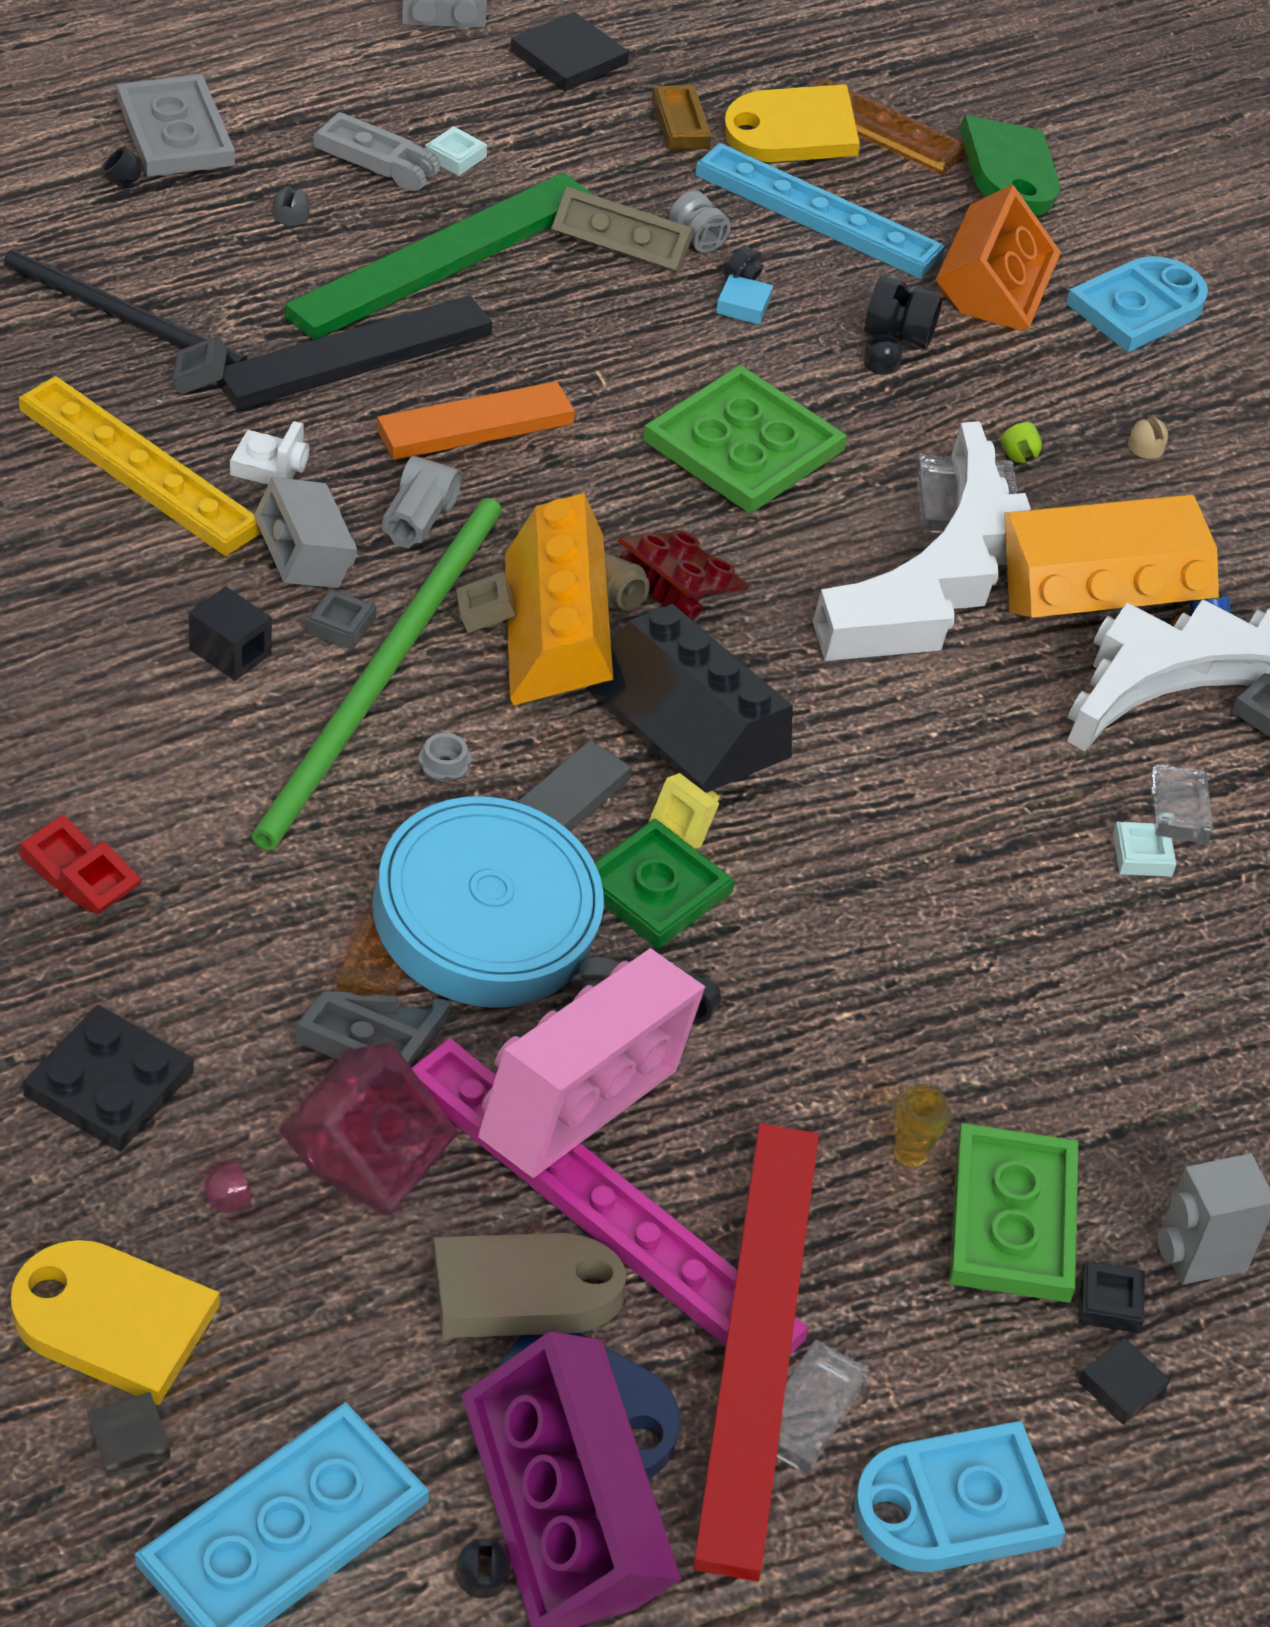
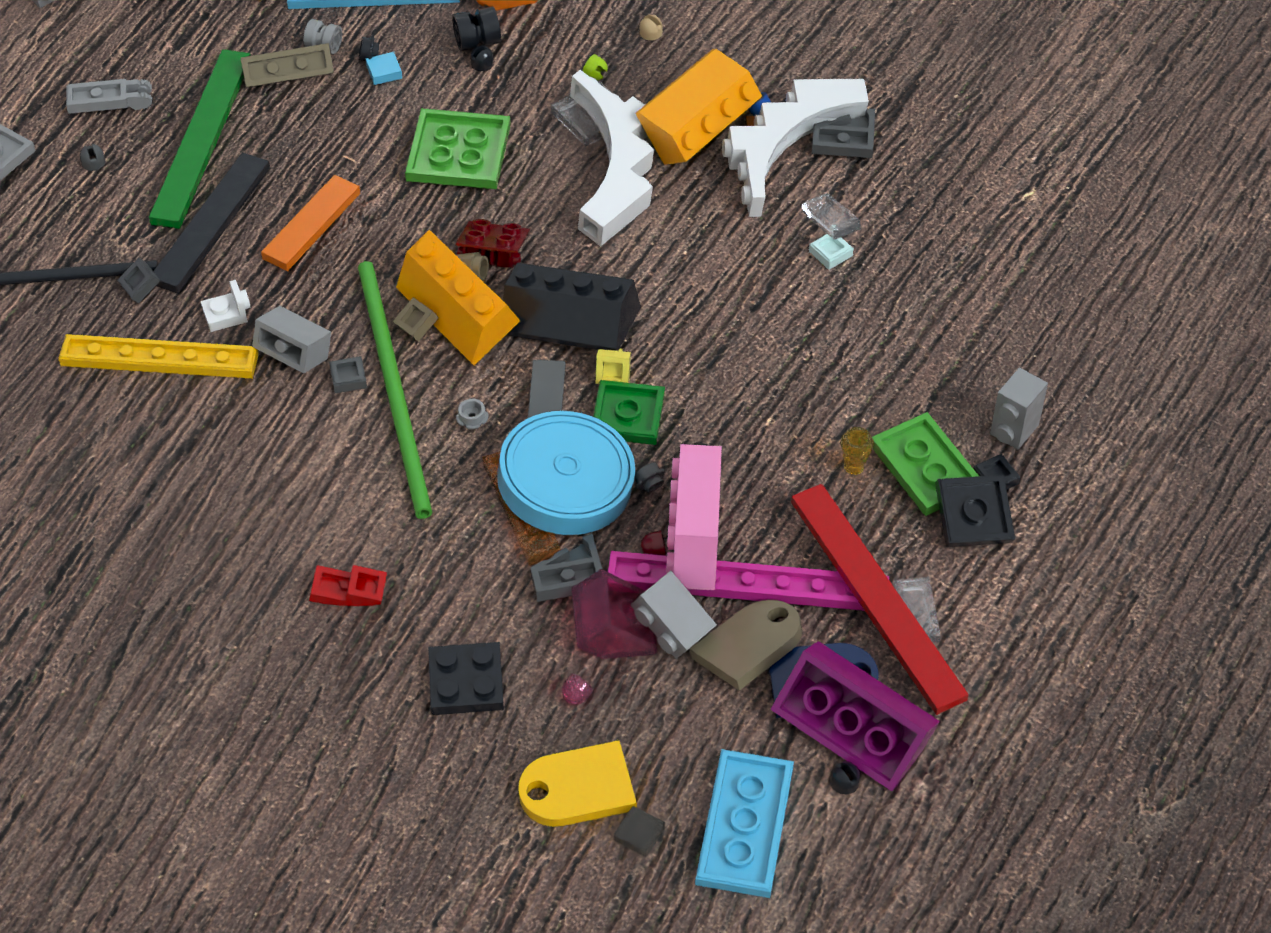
camera: 30 degrees left, 5 degrees up
(230, 633) = (303, 417): black brick -> none
(422, 495) = (328, 280): light grey piece -> none
(442, 1172) = (672, 615): none -> light grey brick
(457, 150) = (149, 68): light aqua tile -> none
(962, 1497) = (1012, 605): medium azure tile -> none
(1024, 1322) = (974, 511): none -> black tile
(1123, 1381) = (1033, 509): black tile -> none

